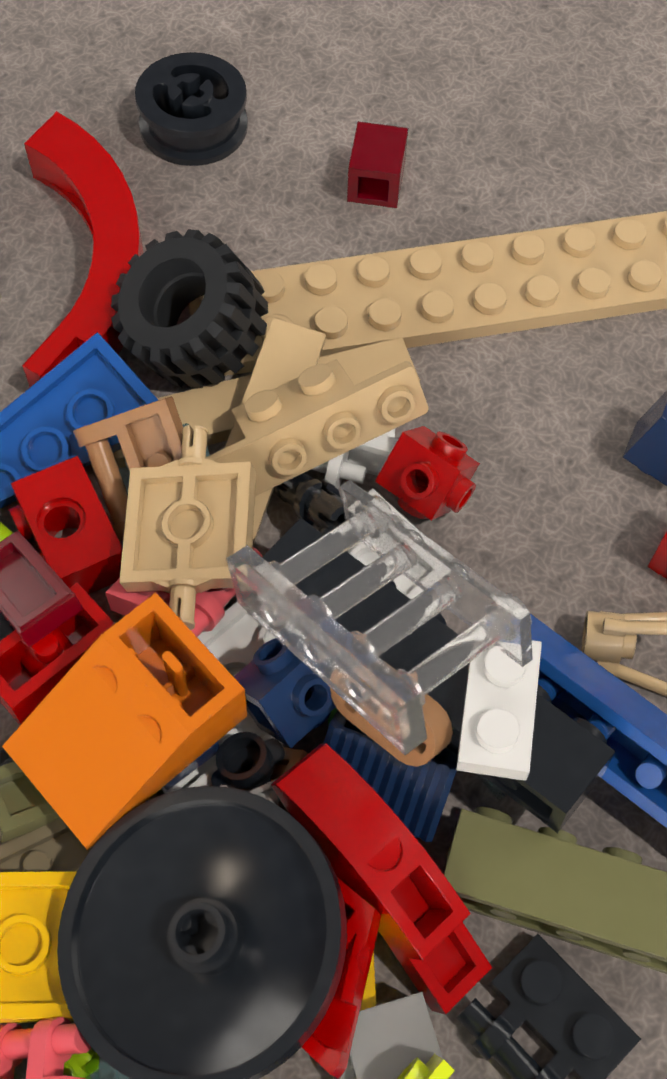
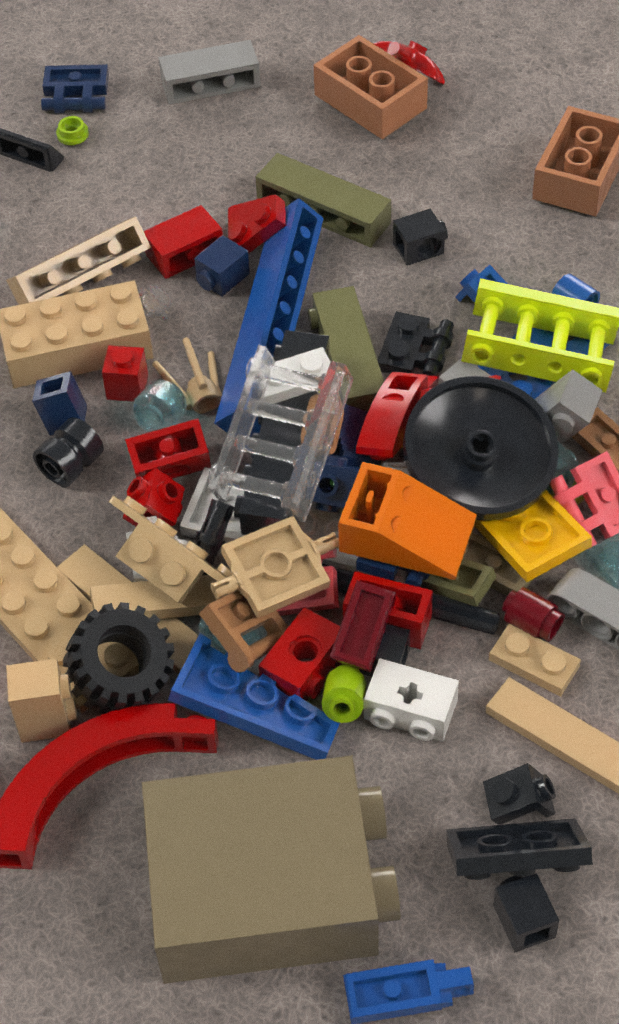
camera: 115 degrees left, 10 degrees down
(200, 199) = (40, 699): none -> tan brick
(502, 520) = (172, 450): none -> red brick
(581, 415) = (70, 450): none -> black wheel
(608, 565) = (159, 405): none -> clear light blue head

